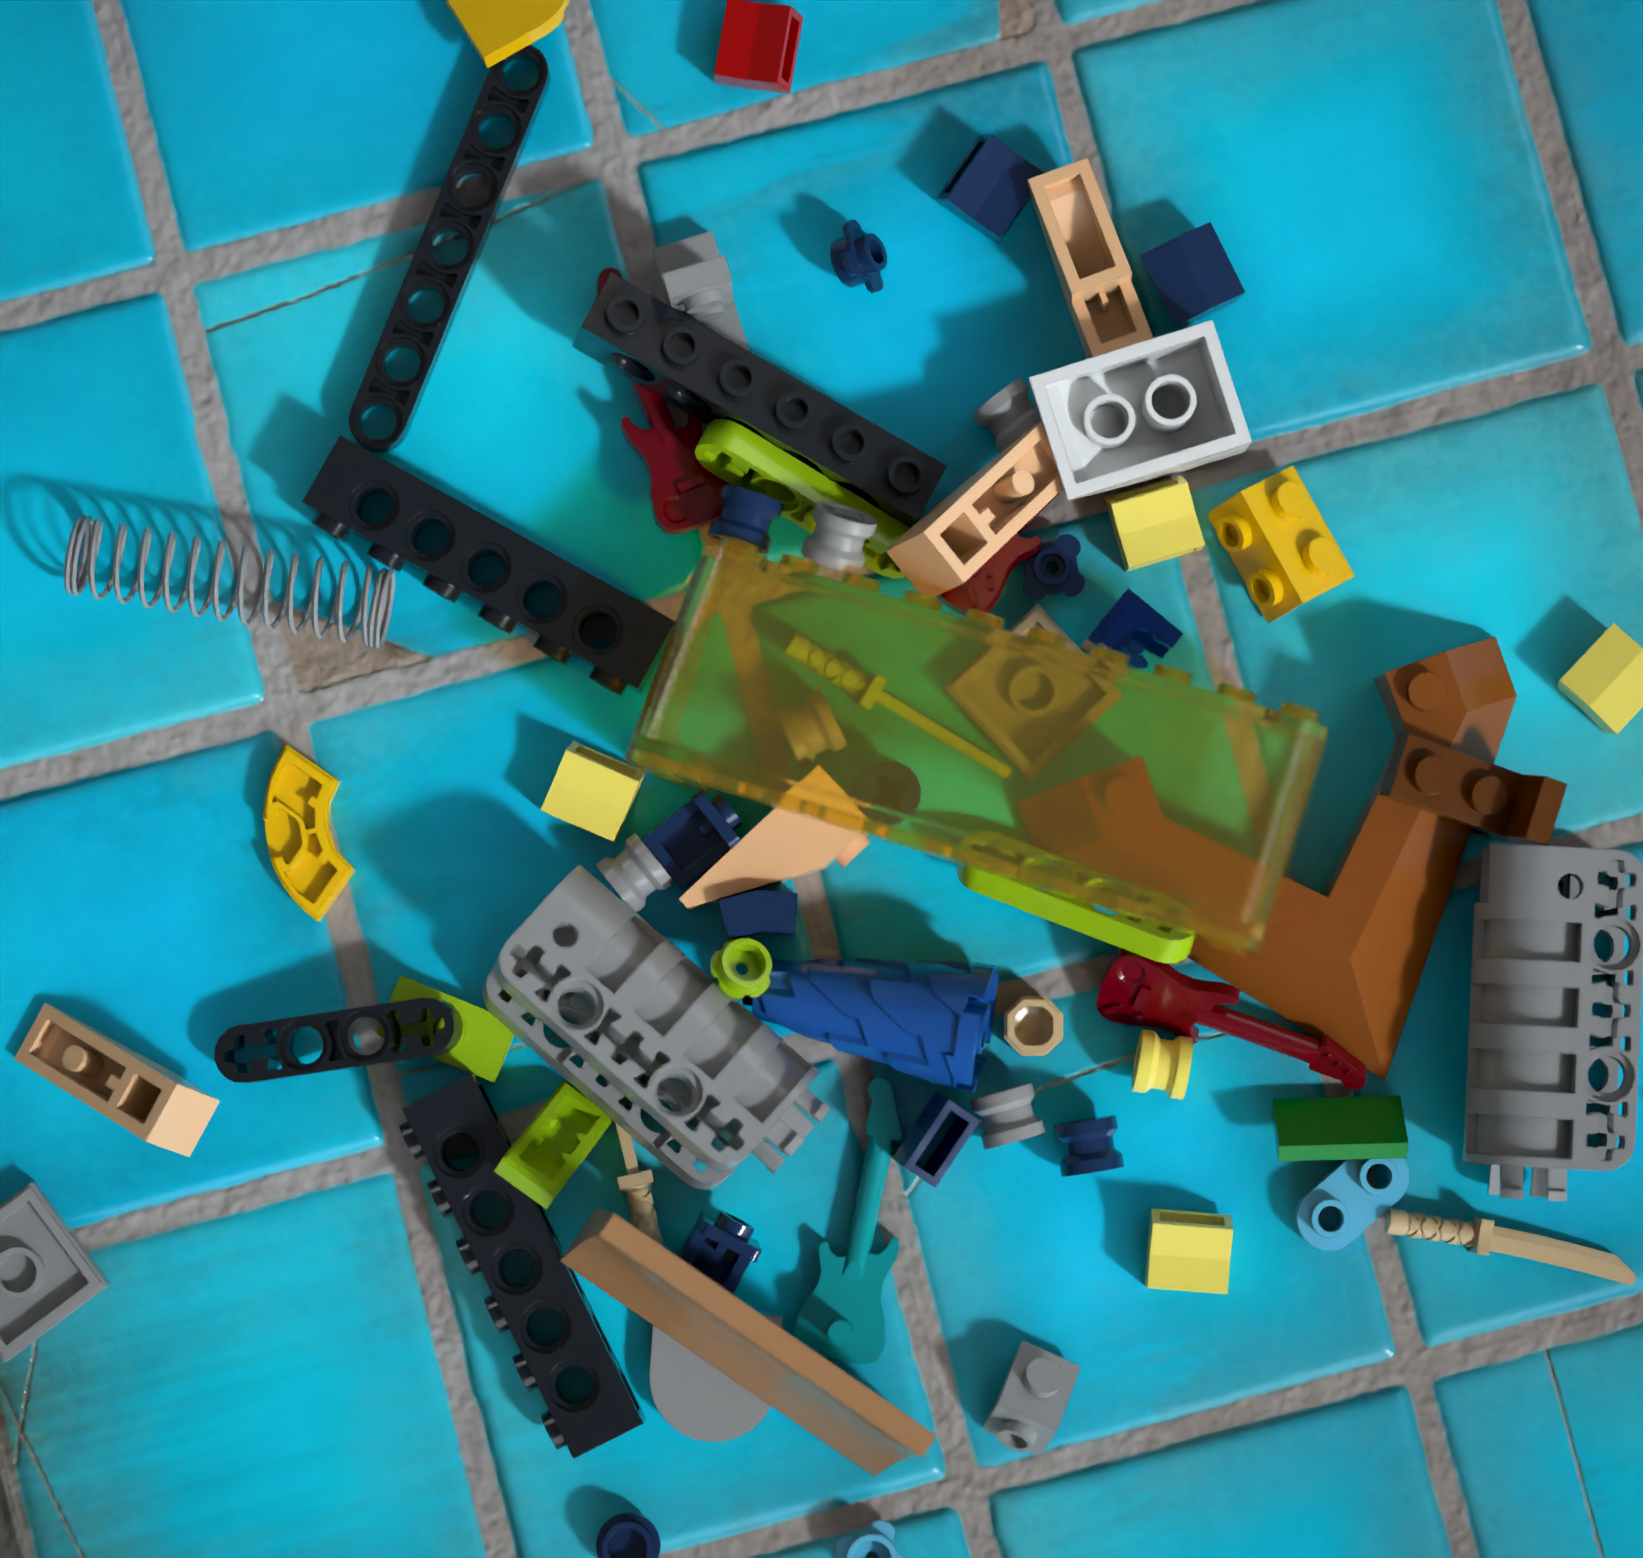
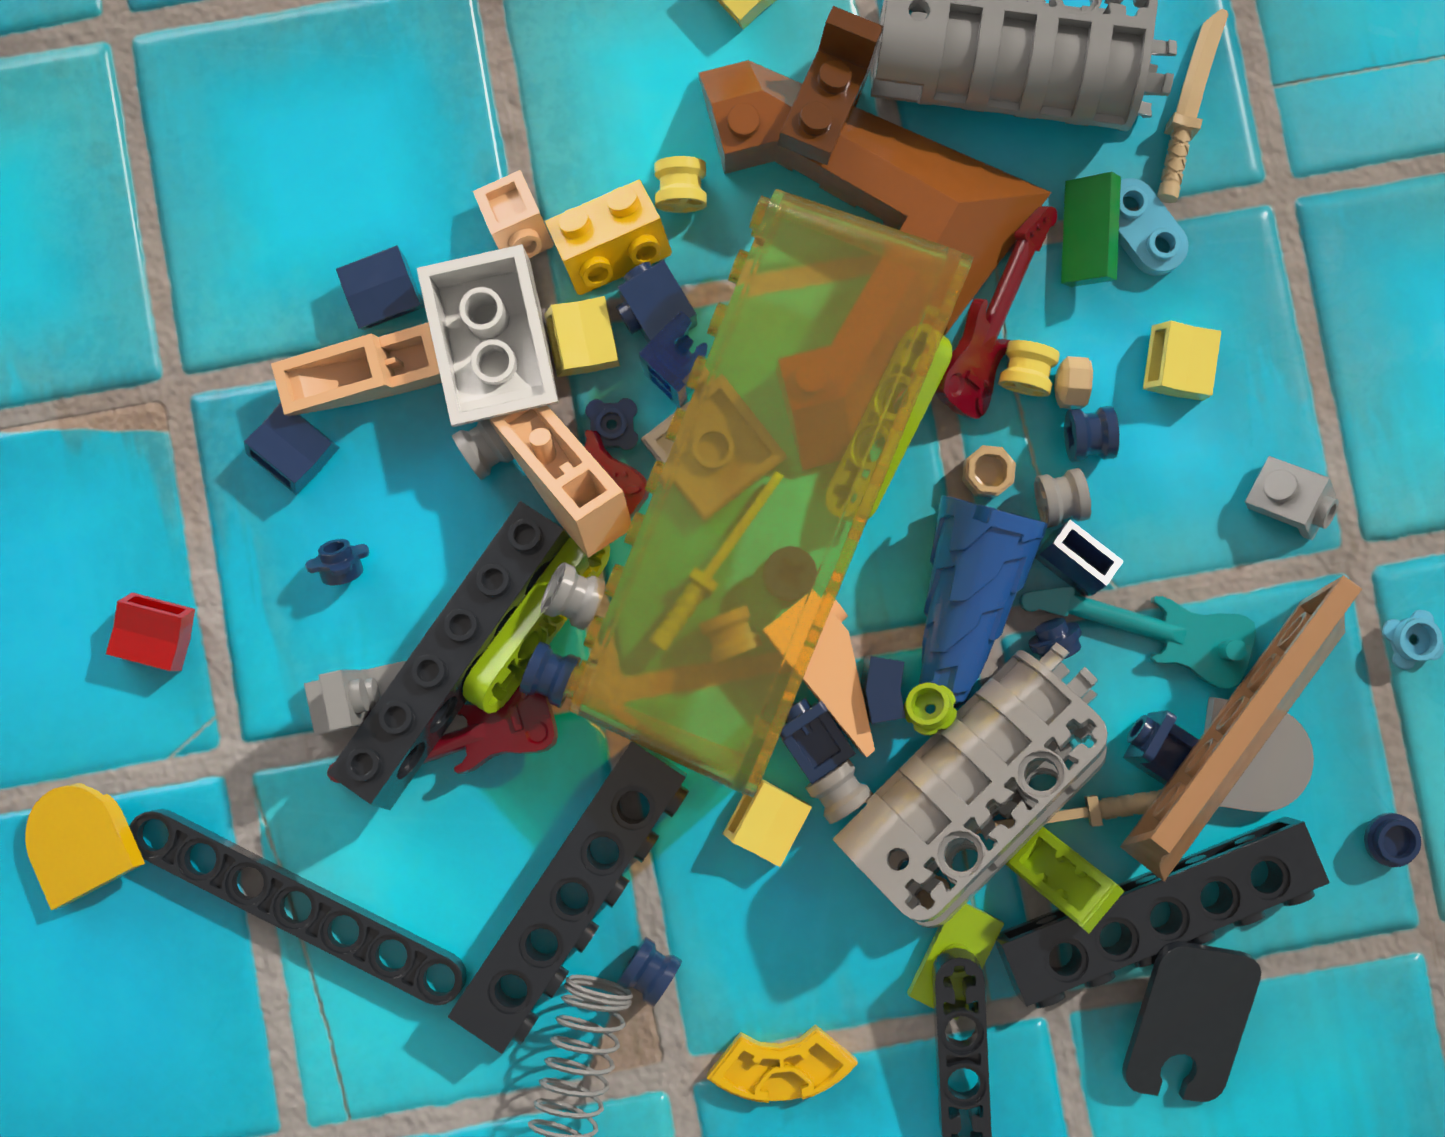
camera: 85 degrees left, 0 degrees up
(406, 666) = (649, 972): none -> dark blue wheel
(414, 1314) = (1192, 1008): none -> black piece
(840, 1123) = (1056, 631): none -> dark blue plate
(1149, 1119) = (1073, 382): none -> tan tile
(1203, 604) = (652, 299): none -> dark blue brick
(1294, 426) = (513, 215): none -> light nougat bracket
(1350, 625) = (680, 184): none -> light yellow wheel

